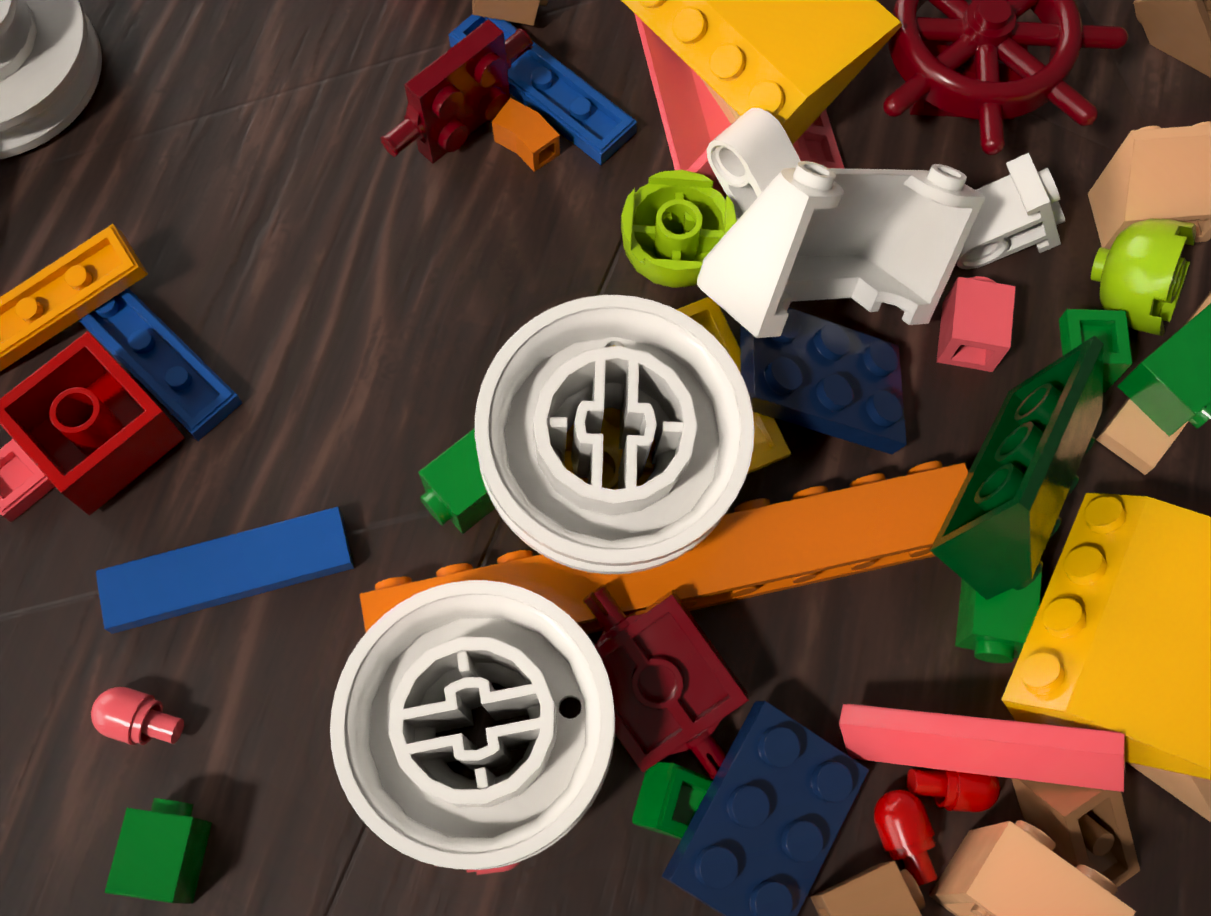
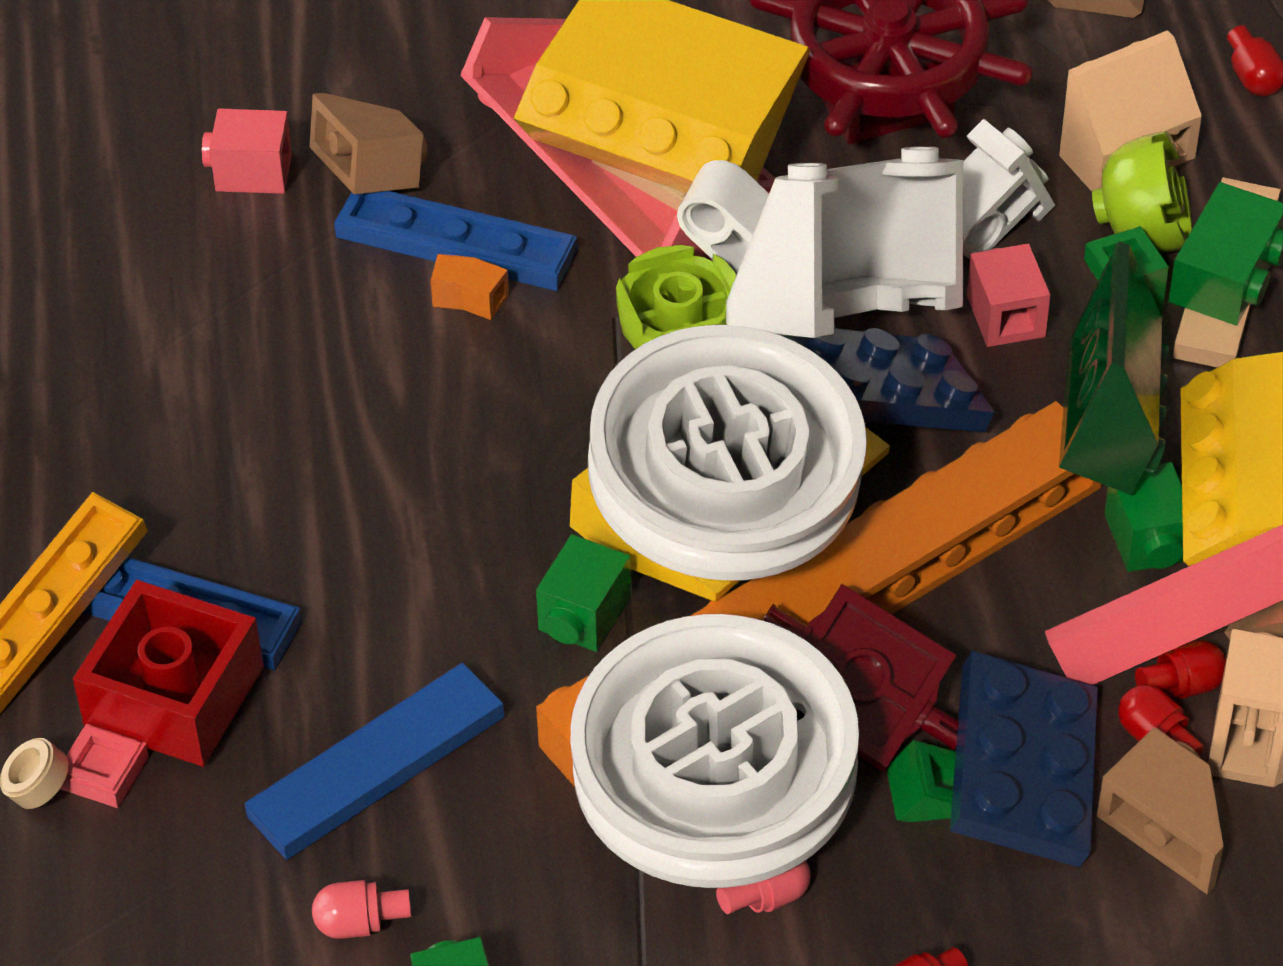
camera: 20 degrees left, 20 degrees down
(458, 92) = (388, 263): dark red plate -> none

